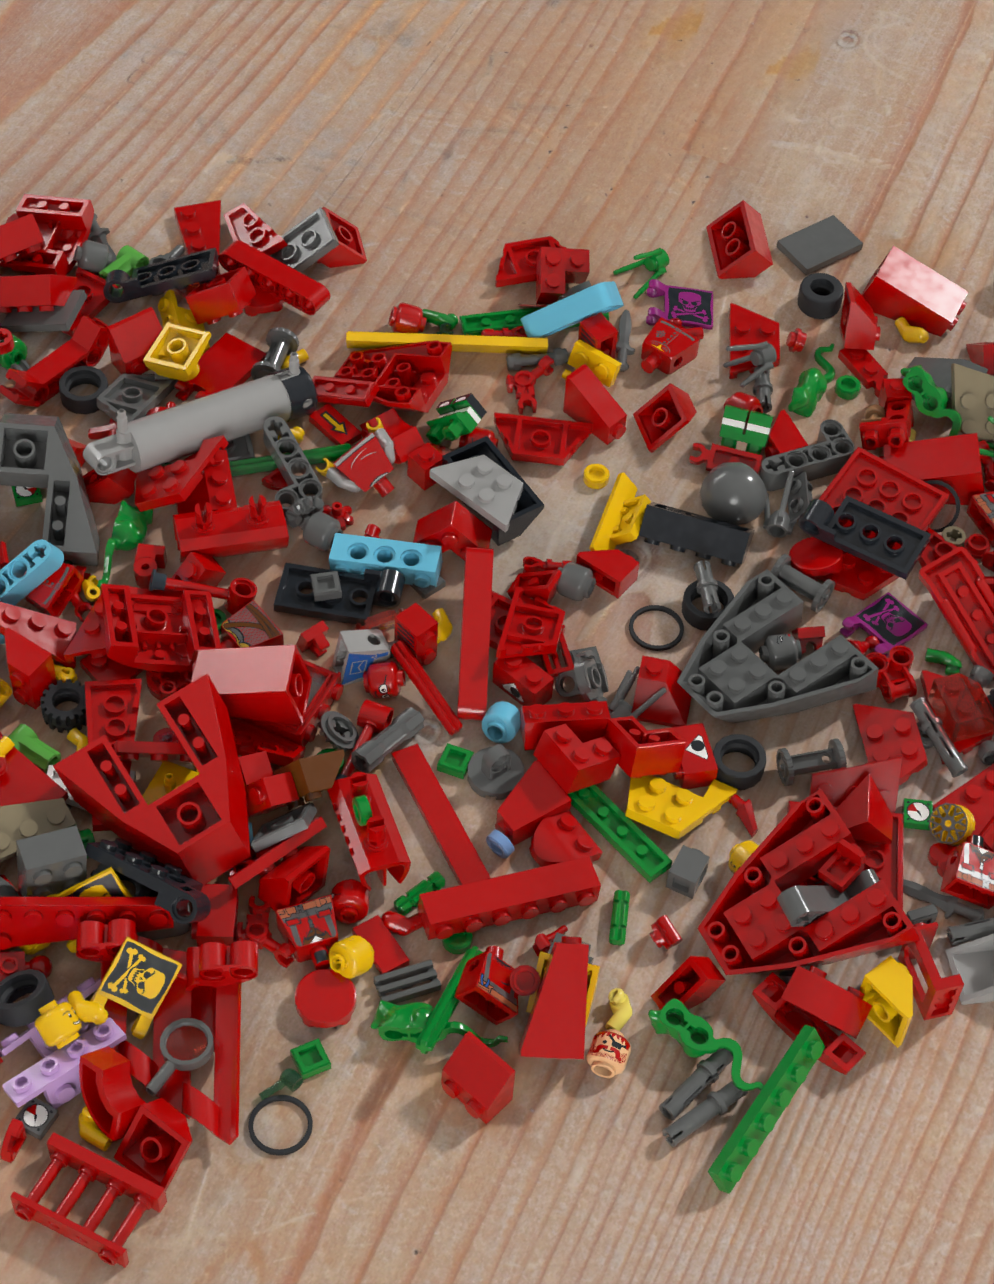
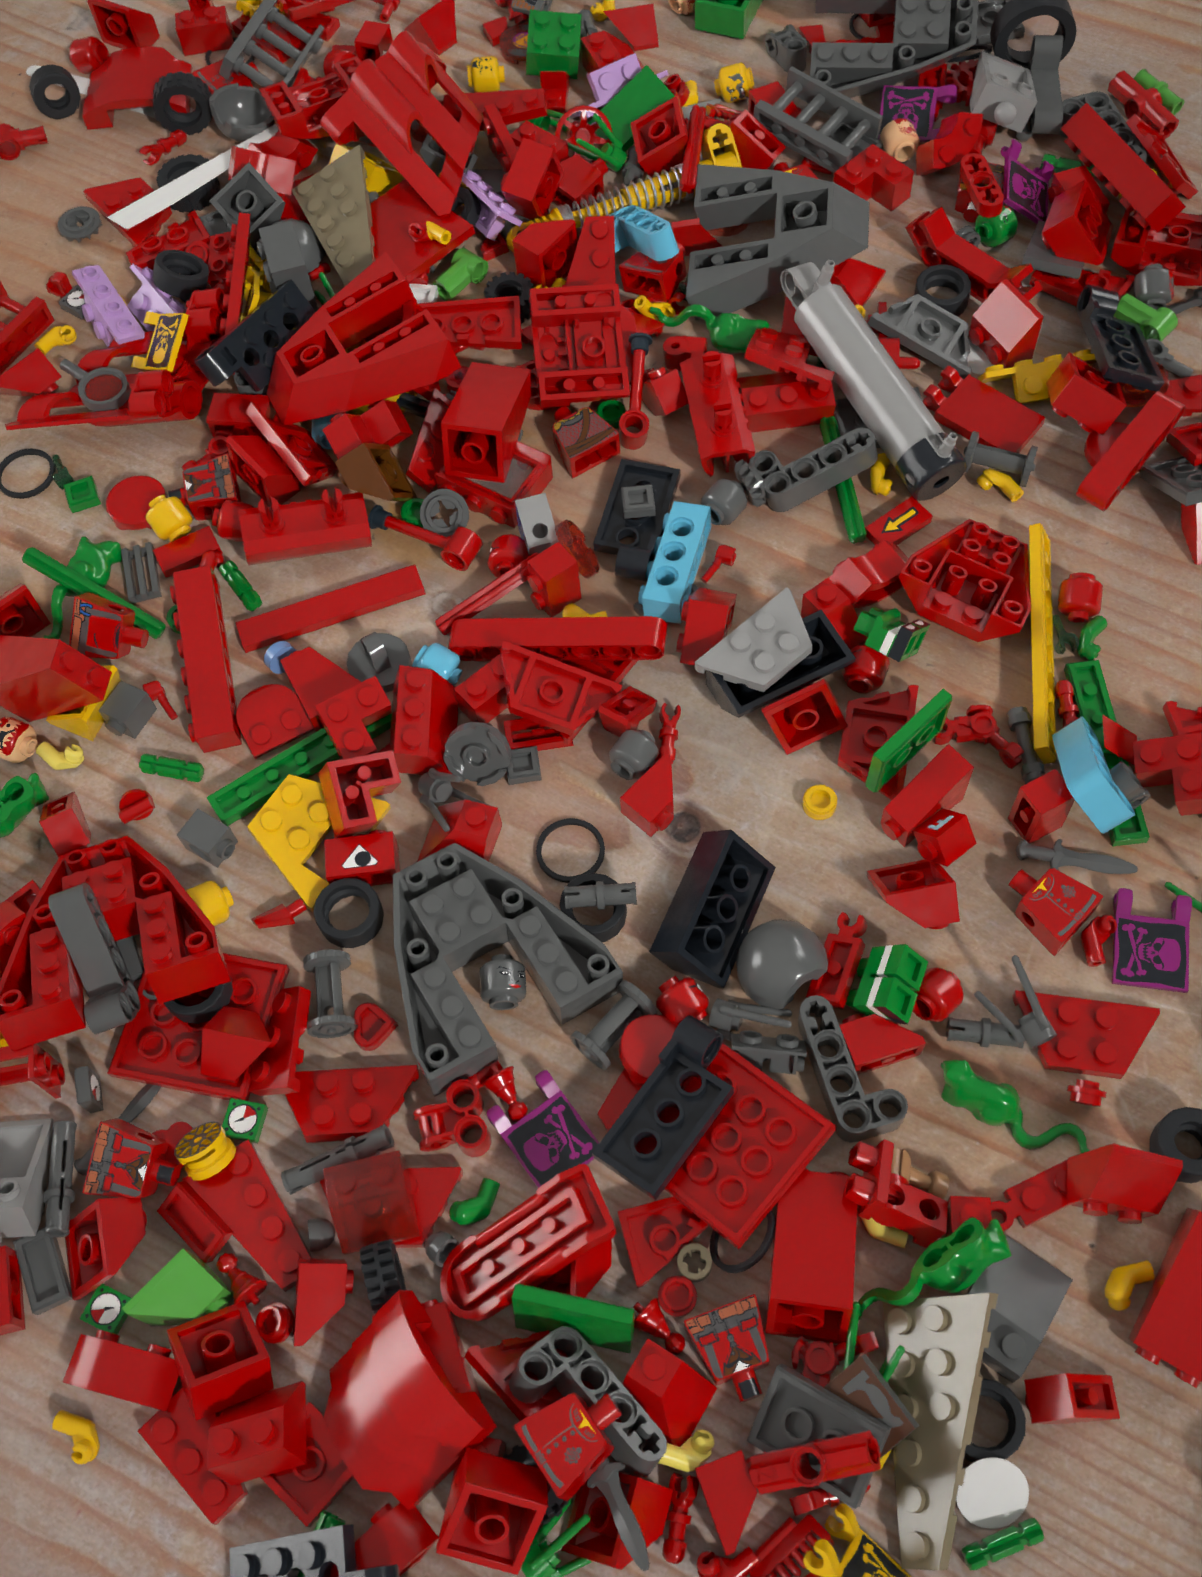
camera: 105 degrees right, 10 degrees up
(58, 1024) = (134, 289): yellow head -> none
(87, 1010) = (142, 305): yellow arm -> none
(109, 1091) = (72, 334): red brick -> none
(177, 352) = (986, 355): yellow slope -> none
(284, 826) = (314, 455): dark grey tile -> none
(314, 639) = (571, 497): red tile -> none
(342, 514) = (757, 525): red plant -> none
(345, 391) = (943, 521): red tile -> none
(361, 809) = (303, 505): green tile -> none
(364, 463) = (822, 540): torso -> none
(374, 751) = (442, 572): dark grey axle -> none
(454, 761) = (402, 624): green tile -> none
(524, 980) = (96, 651): red plate -> none
(528, 465) = (805, 716): none -> red slope
(560, 404) = (908, 741): none -> green tile
(600, 364) = (995, 796): yellow plate -> none
(621, 516) = (748, 817): yellow bracket -> none
(627, 398) = (944, 837): none -> red brick
(774, 544) = (682, 999): none -> red head
(809, 635) = (530, 1024): red tile -> none
(821, 737) = (372, 1026): none -> red tile
(843, 865) = (123, 972): red bracket -> none
(847, 387) = (1000, 1161): green tile -> none

